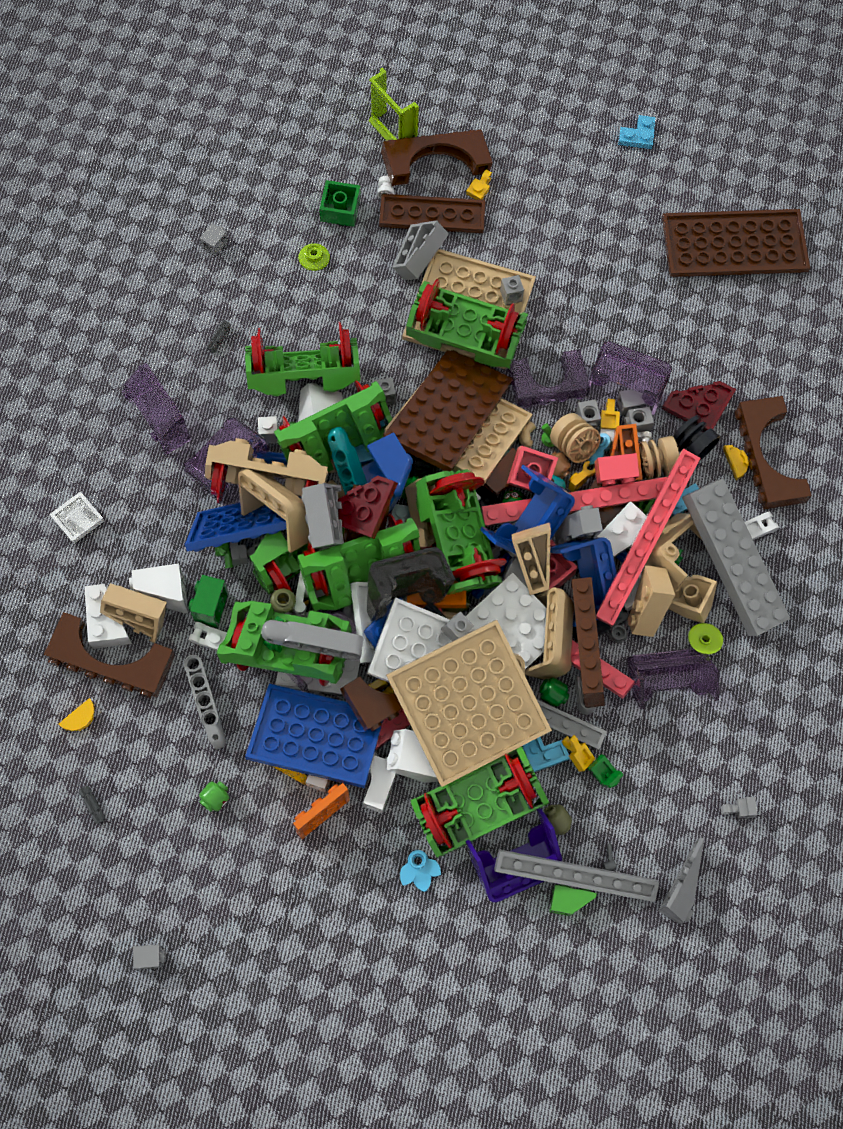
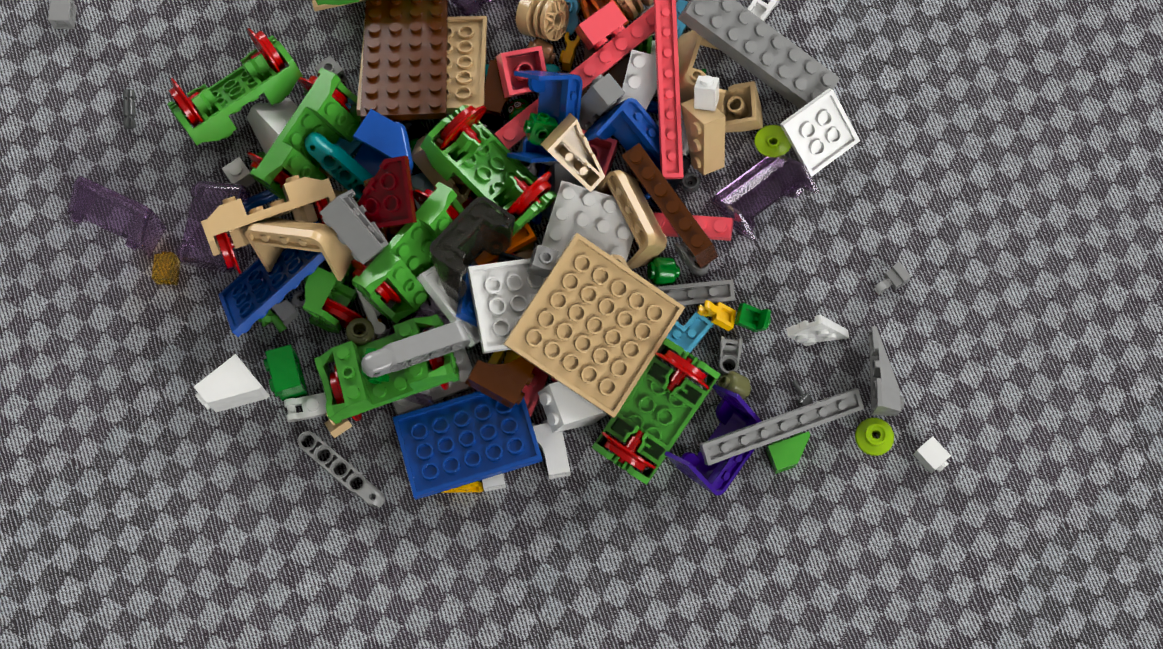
camera: 25 degrees left, 5 degrees up
(77, 517) = (102, 367): white plate -> none
(80, 717) = (229, 555): yellow tile -> none
(92, 804) = (292, 628): dark grey axle -> none
(100, 628) = (192, 449): white wedge -> none
(135, 609) = (219, 422): tan wedge -> none
(144, 675) = (266, 480): reddish brown arch -> none
(170, 470) = (166, 268): none -> clear yellow brick
(214, 796) = (404, 551): bright green head -> none
(221, 668) = (337, 429): none -> tan tile
(321, 810) = (514, 504): orange plate -> none
(421, 873) = (638, 509): medium azure plate -> none
(518, 520) = (539, 127): none -> green brick
(524, 437) = (492, 42): tan arm -> none
(546, 435) = (513, 31): bright green plate -> none
(568, 790) = (729, 353): none -> light grey piece
(644, 937) = (871, 445): none -> lime piece
(652, 814) = (817, 331): none -> white wing
(670, 568) = (706, 93): none -> white brick
(690, 976) = (932, 455): none -> white brick
(748, 653) = (820, 131): none -> white plate

